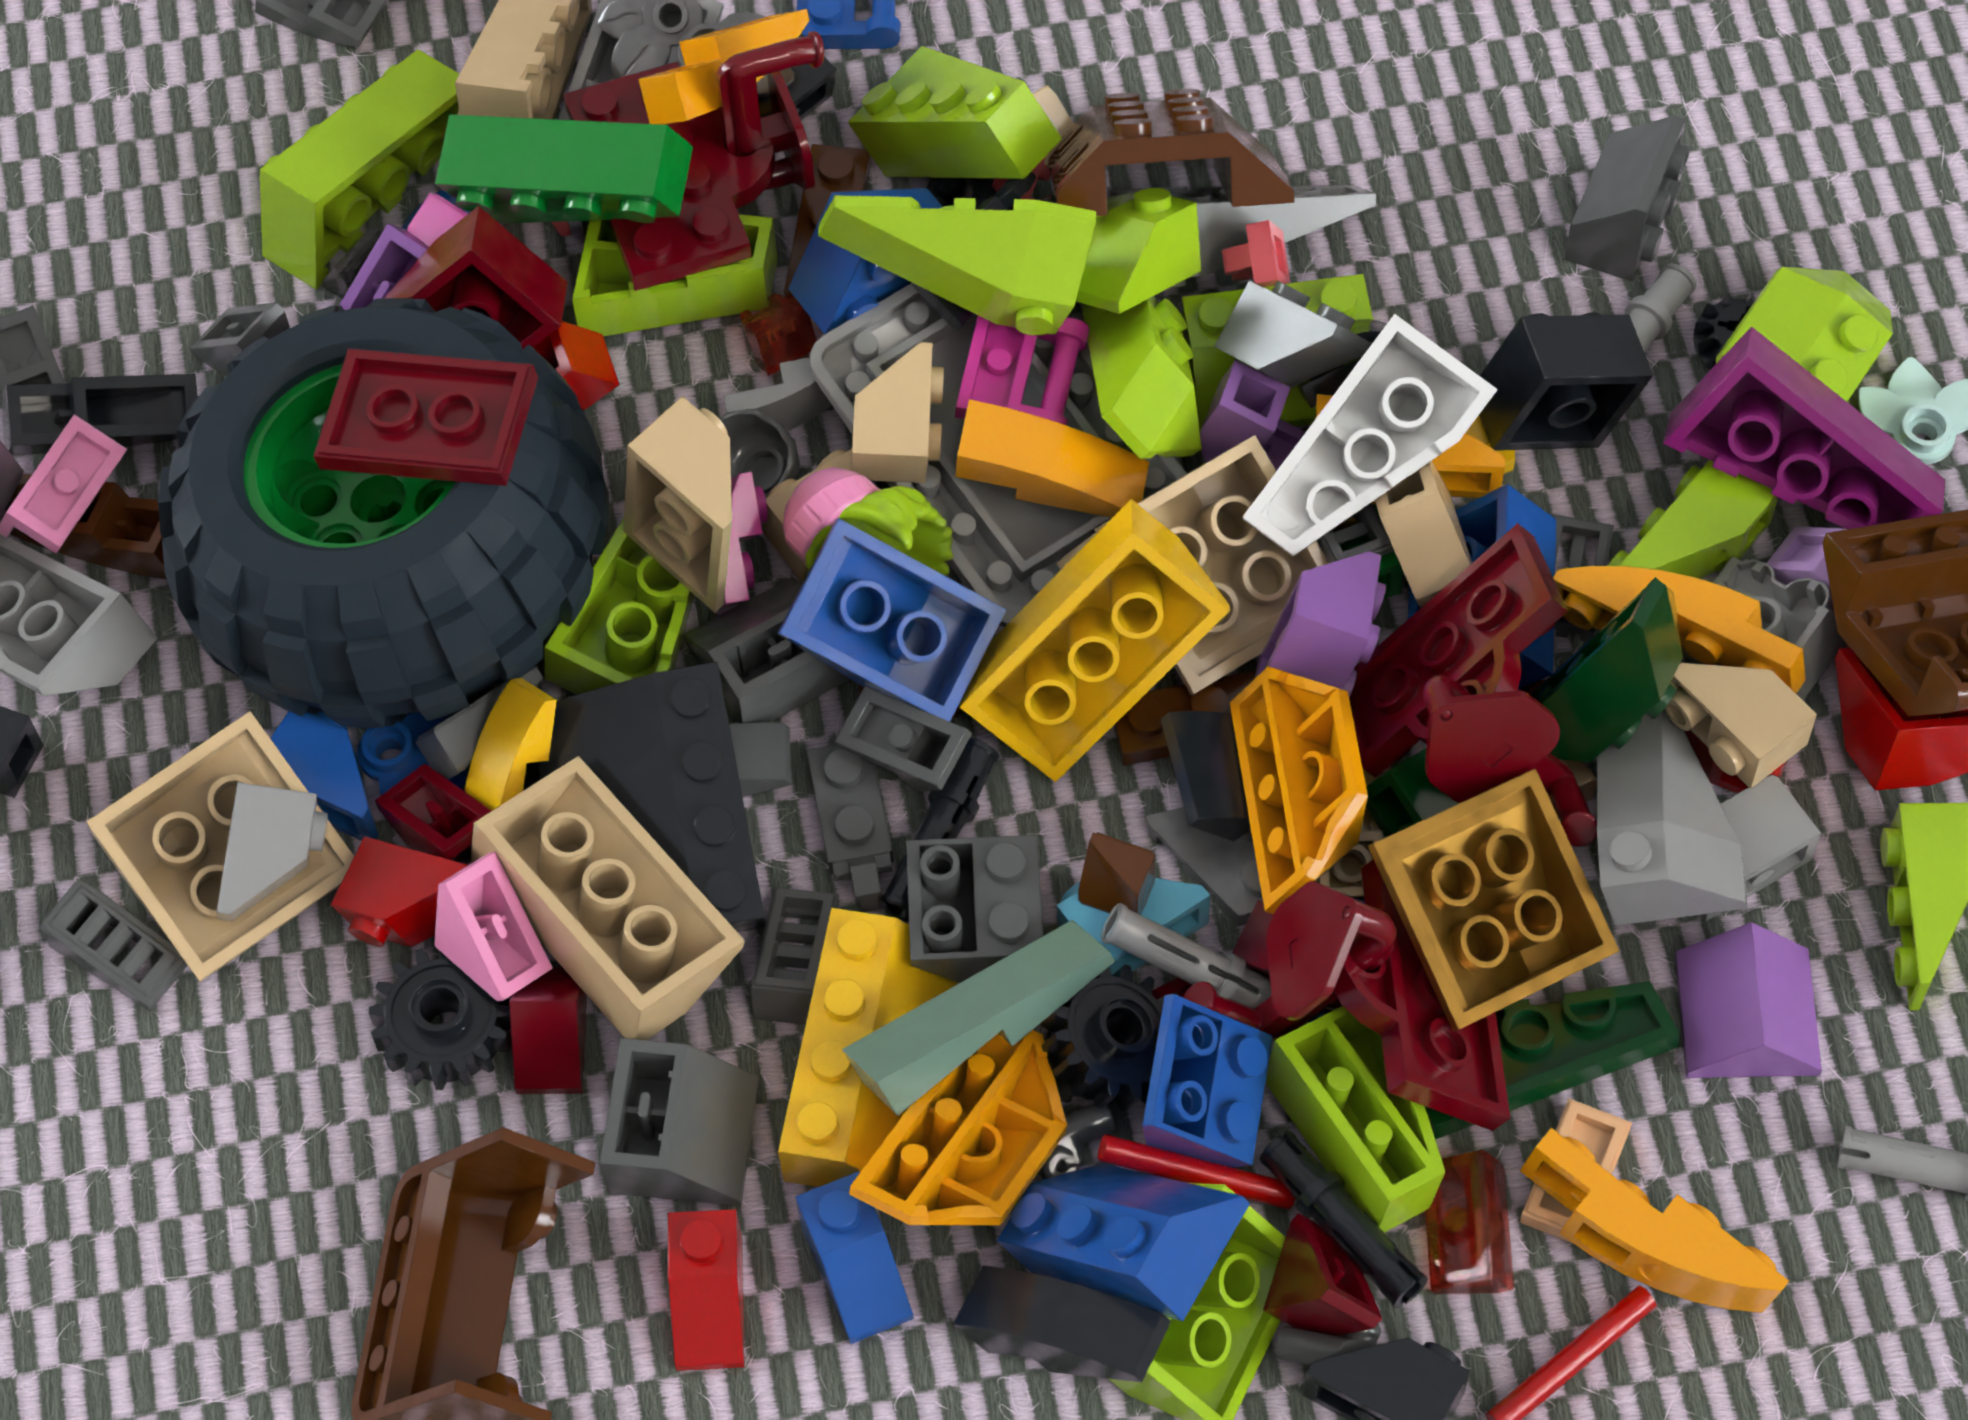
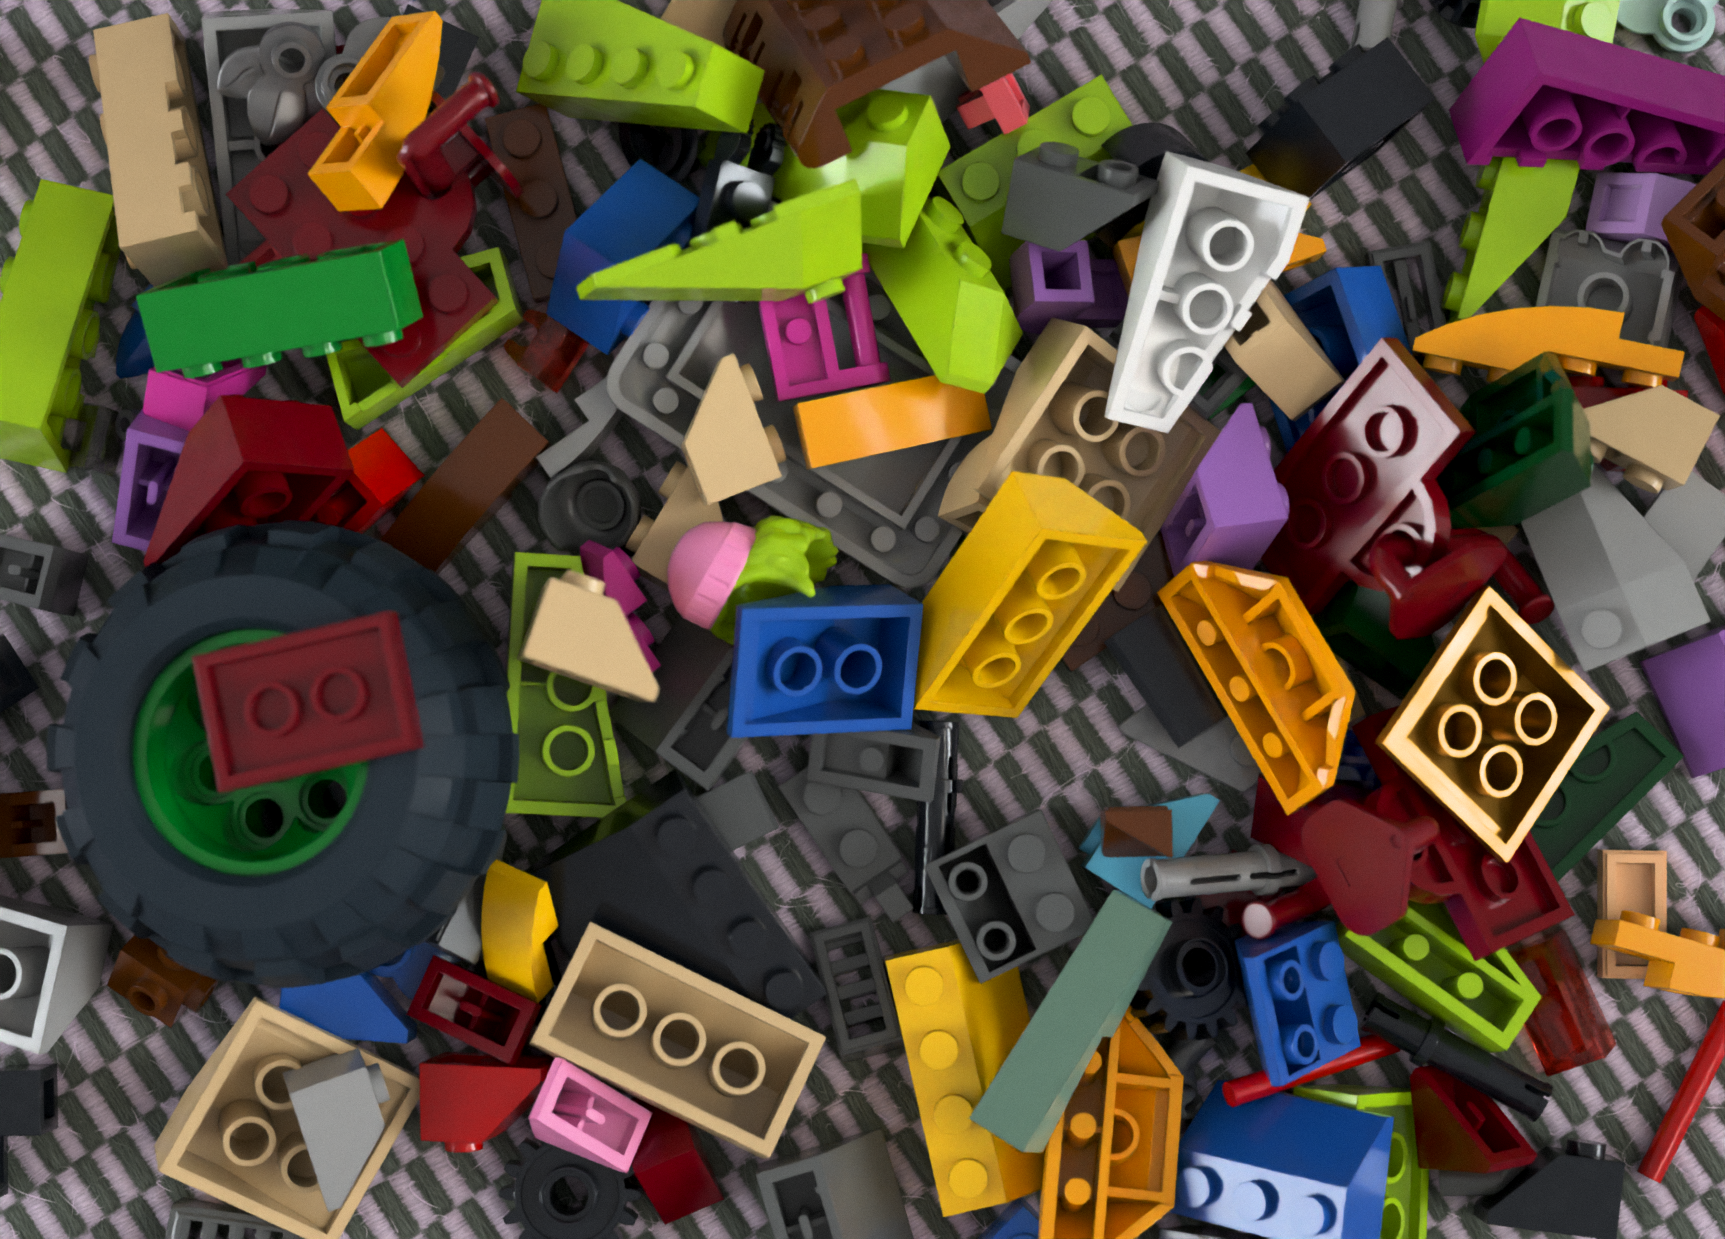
camera: 25 degrees left, 25 degrees up
(181, 685) = (158, 983): none -> reddish brown brick
(624, 411) = (467, 488): none -> reddish brown slope

